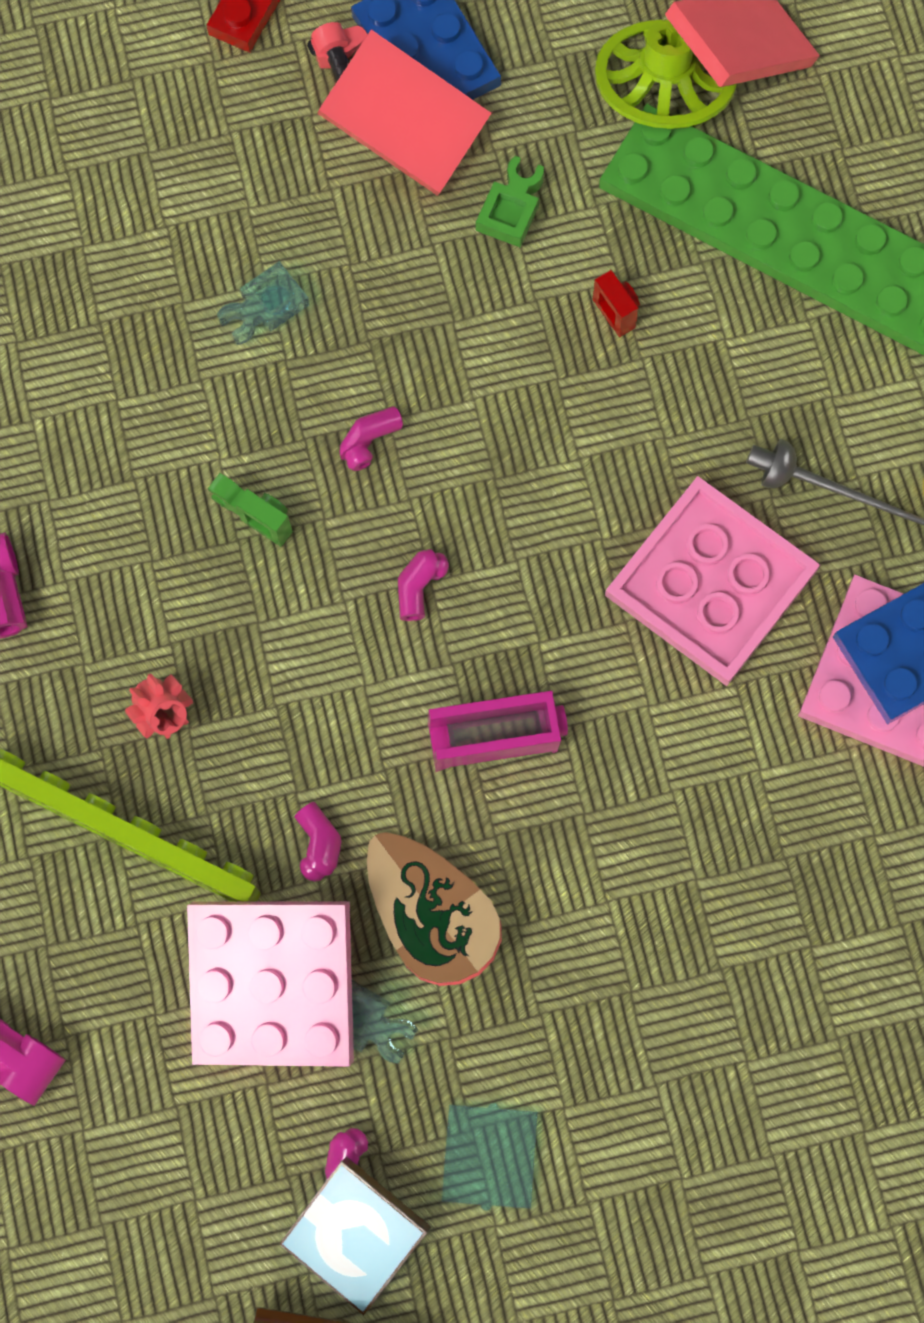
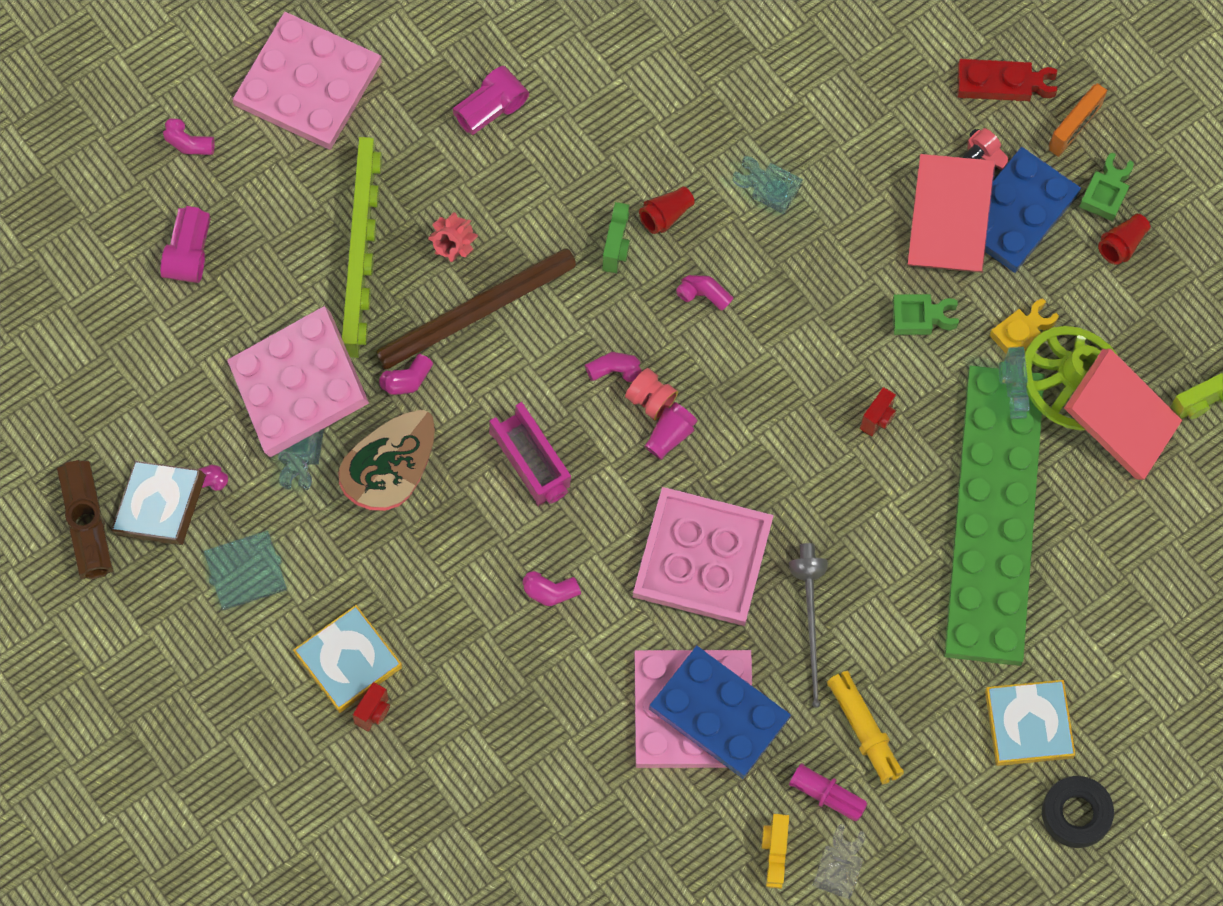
camera: 60 degrees right, 5 degrees down
(241, 437) = (663, 211): none -> red cone
(265, 721) = (476, 308): none -> reddish brown axle
(478, 552) = (651, 393): none -> coral wheel
(533, 550) = (671, 429): none -> dark pink cone
(579, 108) = (1020, 329): none -> yellow plate
(650, 128) = (1014, 374): none -> clear light blue plate
(666, 1071) = (347, 658): none -> tile
(680, 785) = (547, 592): none -> dark pink arm
(750, 1065) = (372, 707): none -> red plate

